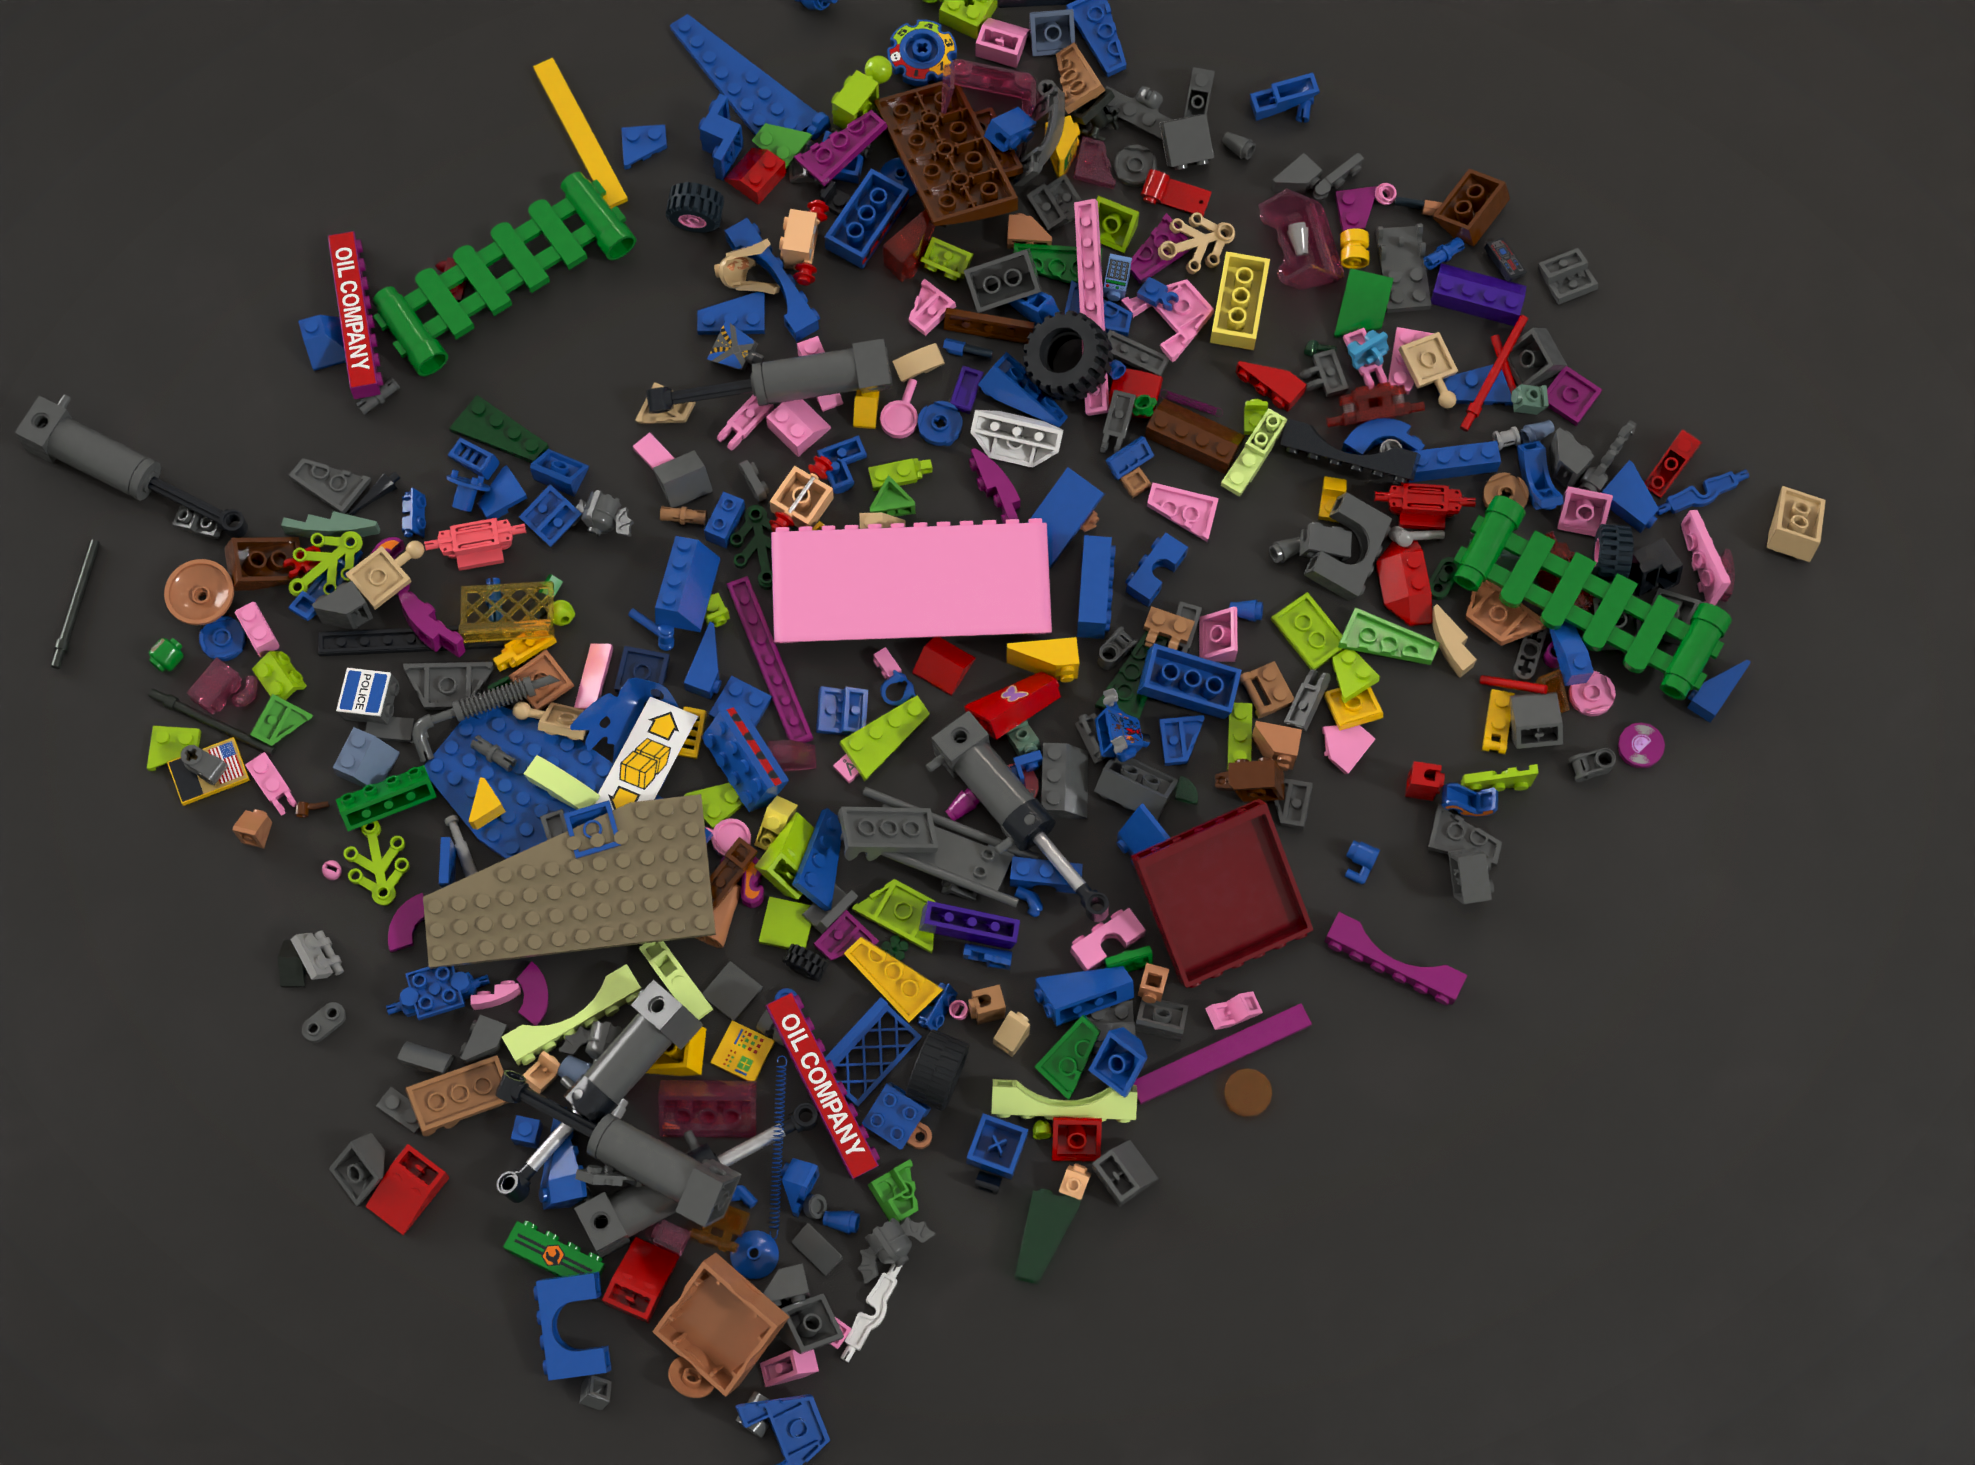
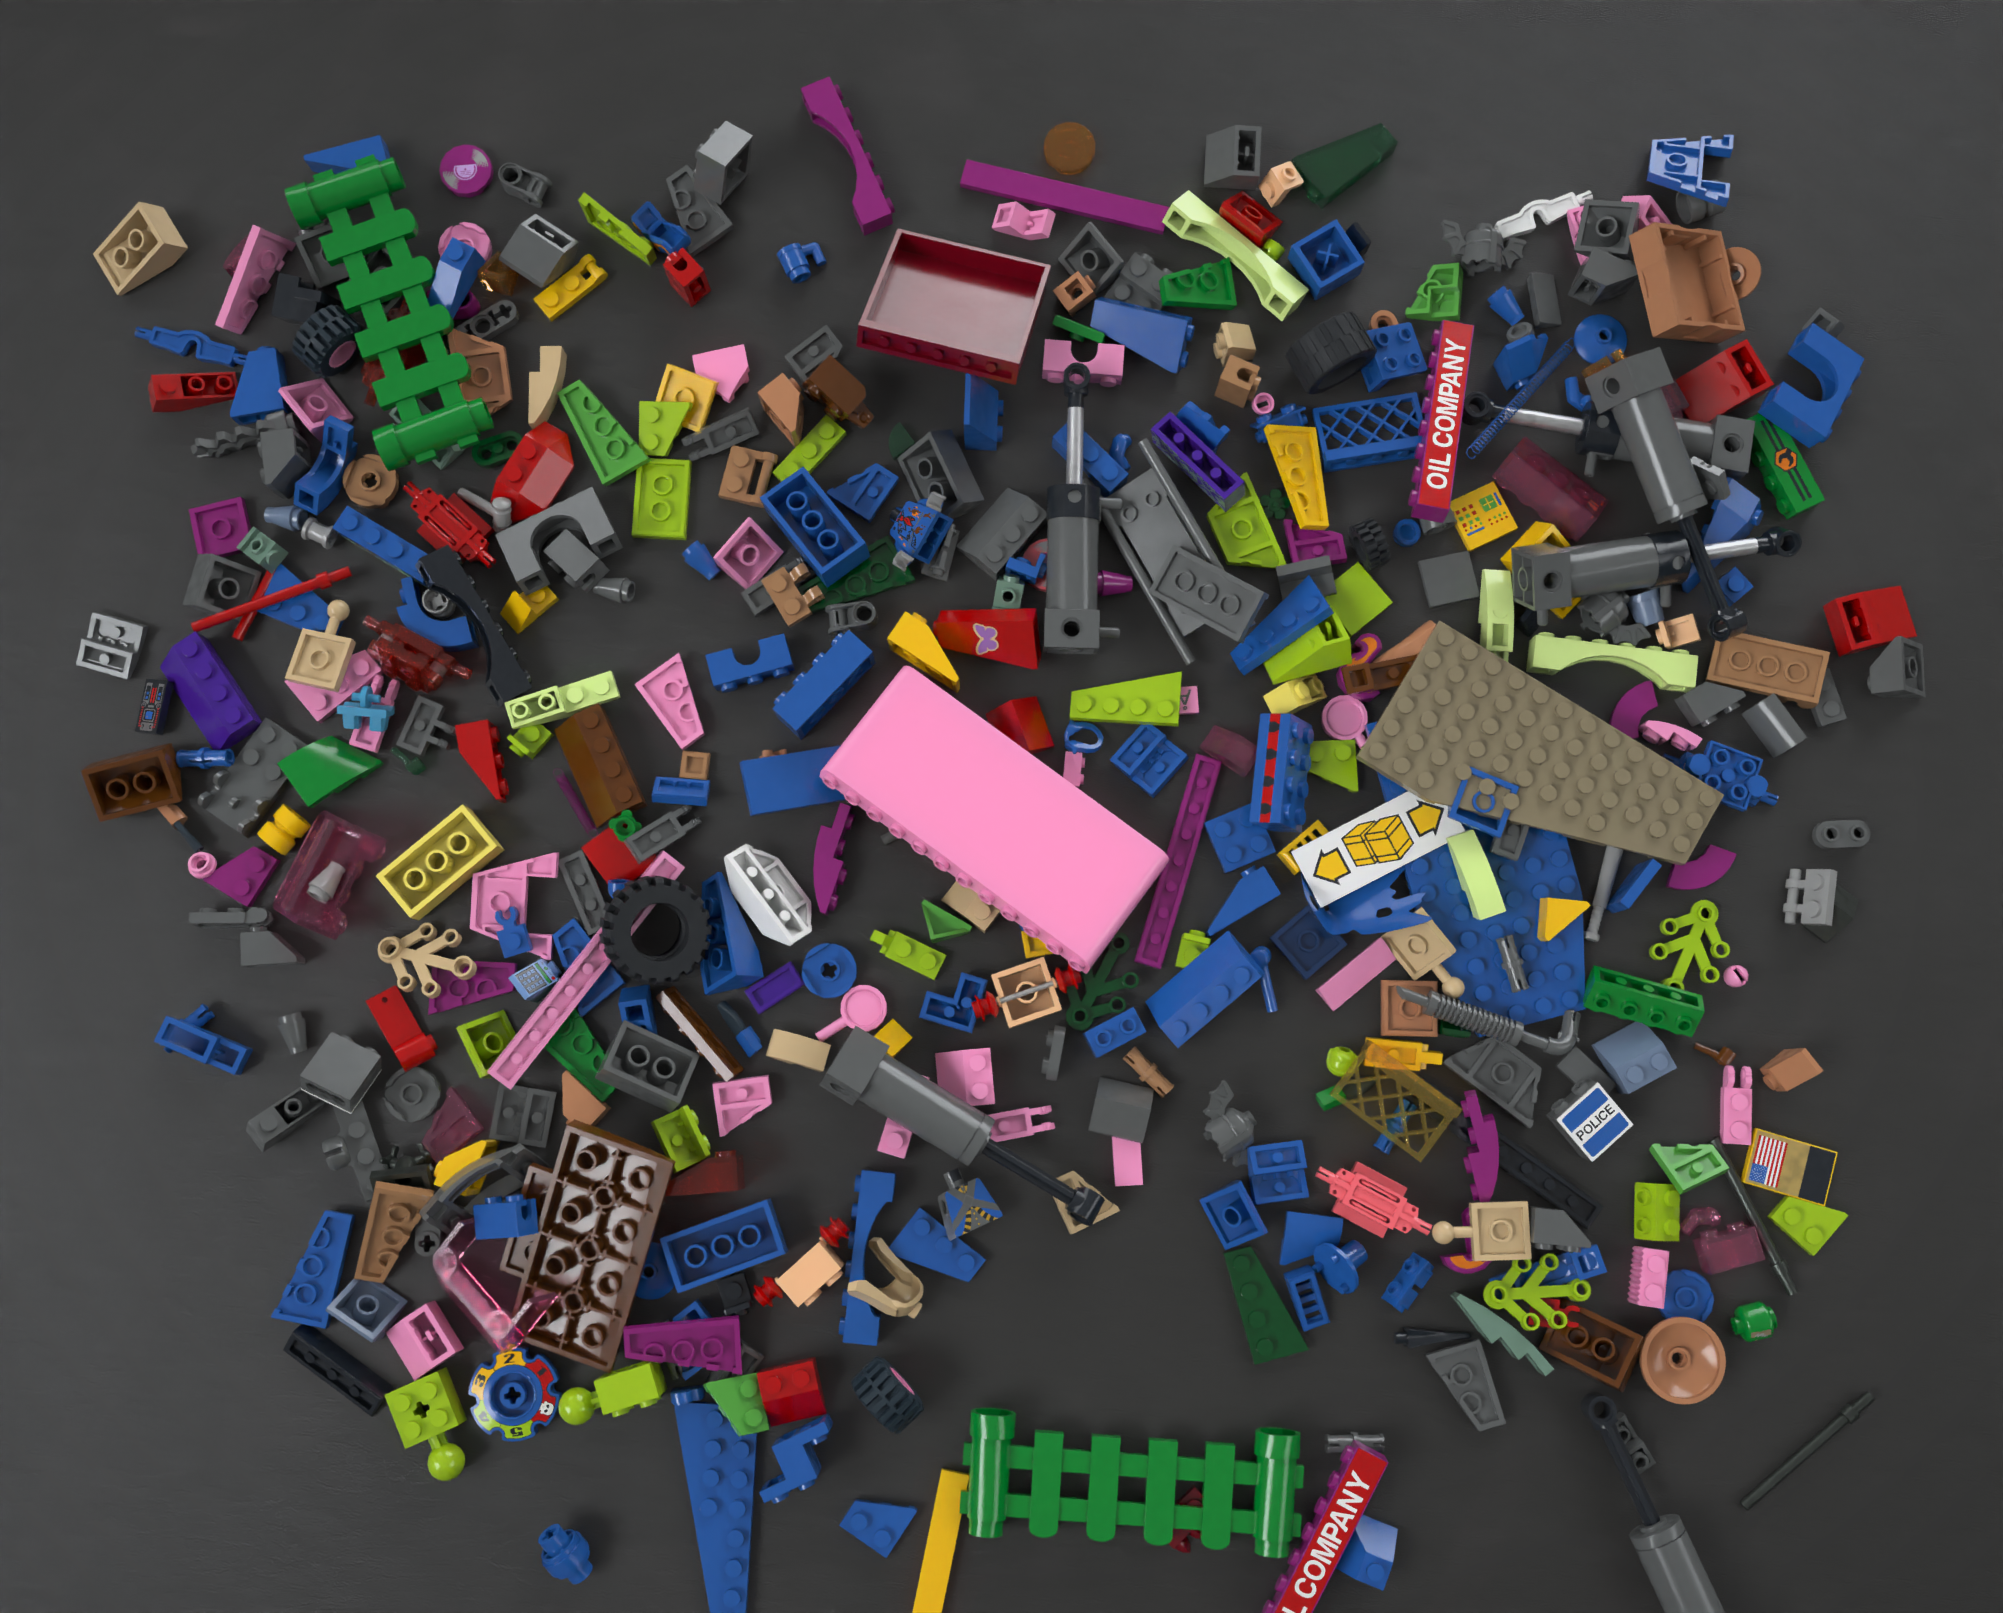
camera: 140 degrees left, 10 degrees up
(205, 766) = (1794, 1167): dark grey piece -> none
(1119, 1060) = (1165, 235): blue slope -> none
(1513, 684) = (528, 300): red bar -> none

